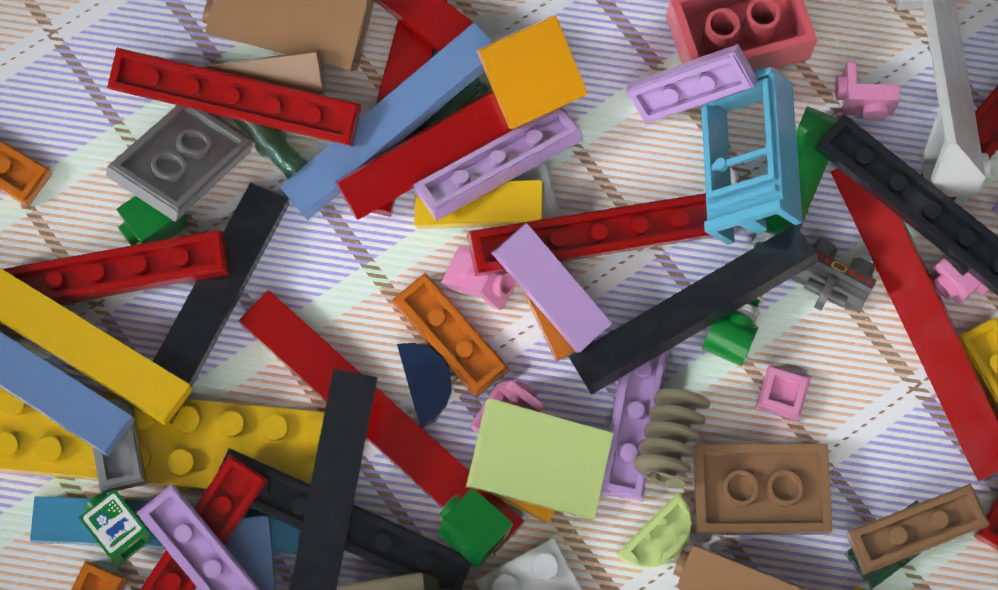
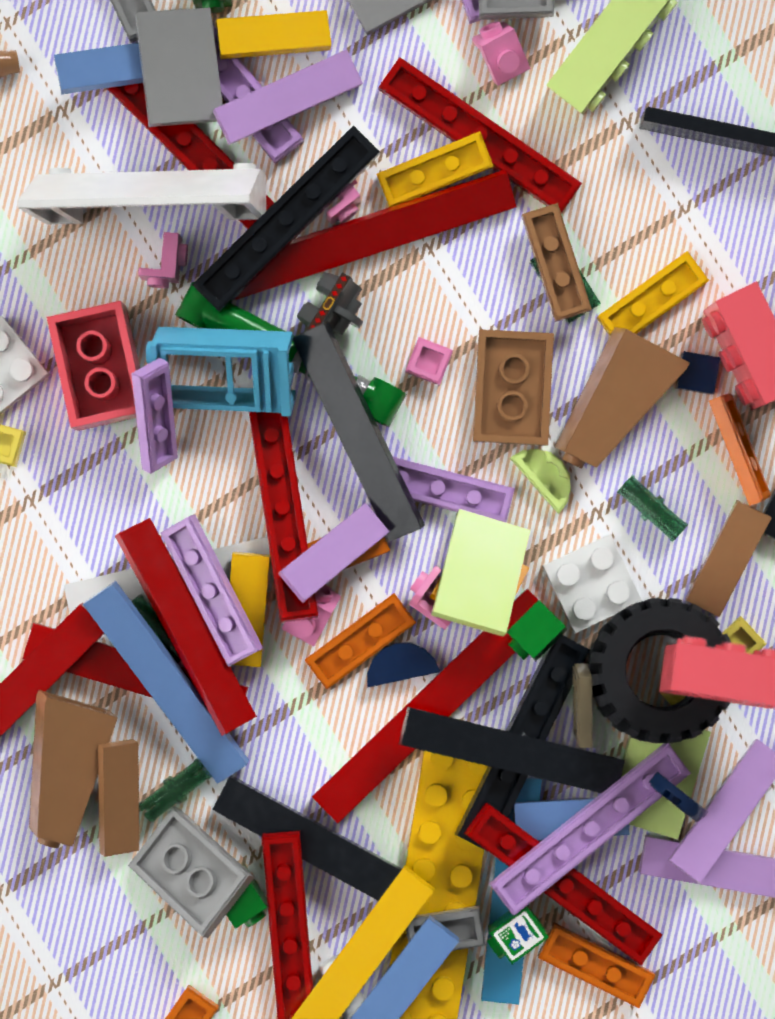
camera: 85 degrees left, 15 degrees up
(234, 96) = (135, 822): red tile -> none
(532, 71) = (134, 556): light orange tile -> none
(668, 435) = (467, 460): dark tan piece -> none

